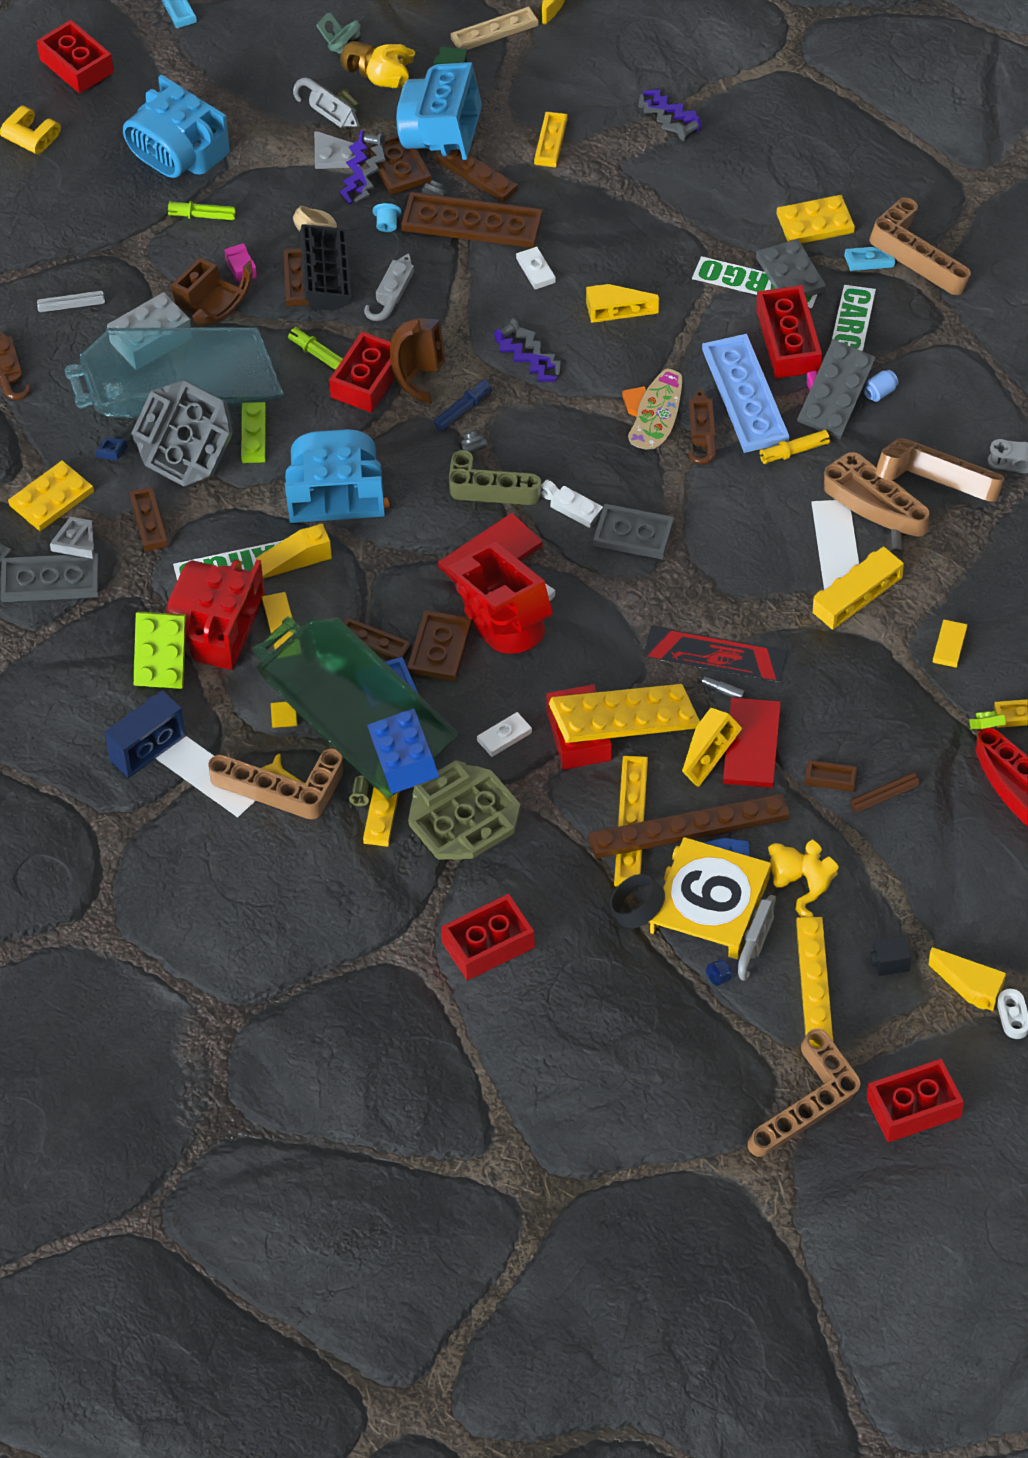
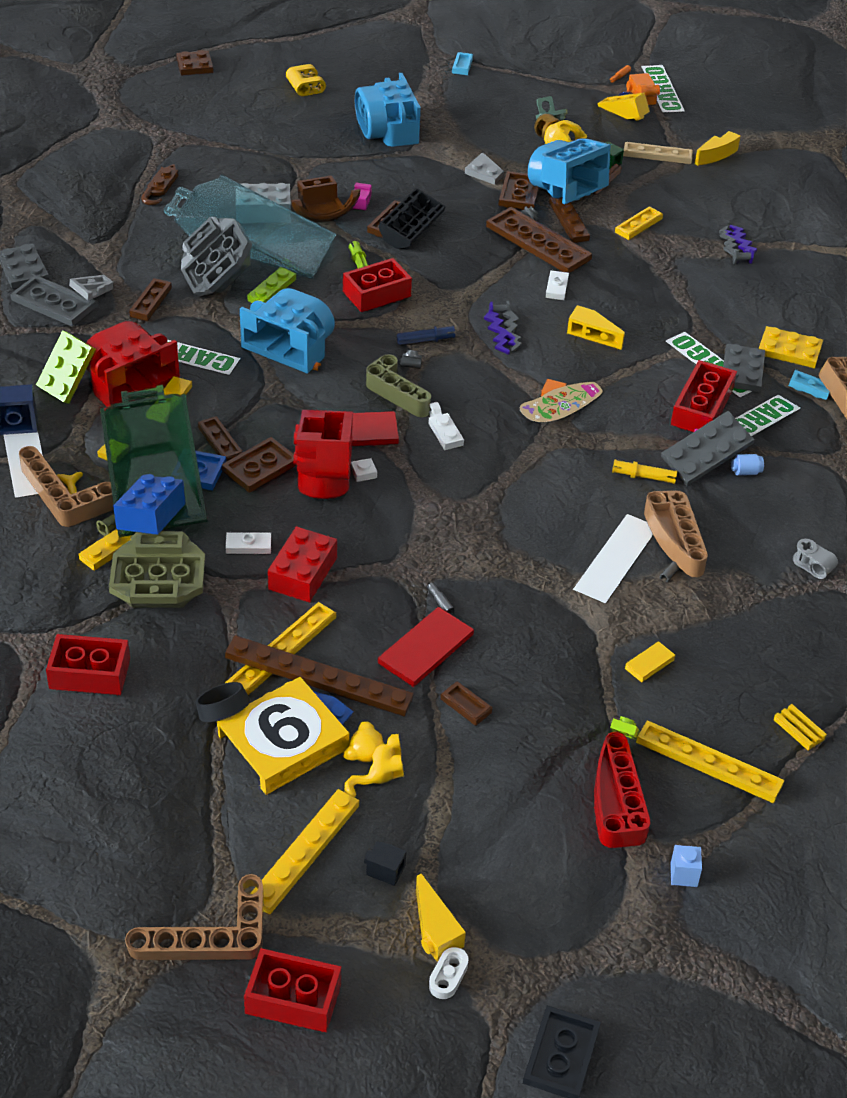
camera: 30 degrees right, 10 degrees down
(51, 495) = (107, 260): yellow plate -> none
(70, 301) = (235, 170): light grey axle -> none
(75, 56) = (370, 56): red brick -> none
(111, 448) = (171, 252): dark blue tile -> none
(201, 210) = (360, 158): lime axle -> none
(297, 551) = (225, 361): yellow slope -> none
(313, 217) = (428, 188): tan hat -> none
(327, 104) = (504, 142): light grey plate -> none
(343, 95) = (519, 144): olive piece -> none
(359, 174) = (488, 185): piece -> none
(387, 216) = (481, 212): medium azure piece -> none
(392, 287) = (448, 252): light grey plate -> none
(416, 348) = (417, 284): reddish brown piece -> none
(624, 713) = (339, 568): yellow plate -> none
(633, 531) = (471, 465): dark grey plate -> none
(702, 427) = (585, 427): reddish brown plate -> none
(709, 743) = (385, 627): yellow slope -> none
(715, 654) = (458, 574): black sticker -> none
(718, 972) = (238, 793): clear blue piece -> none
(745, 393) = (637, 421): light blue plate -> none
(756, 935) = (292, 781): light grey plate -> none
(857, 587) = (607, 584): yellow brick -> none
(884, 792) = (498, 738): reddish brown axle -> none
(939, 467) = (742, 533): medium nougat beam -> none

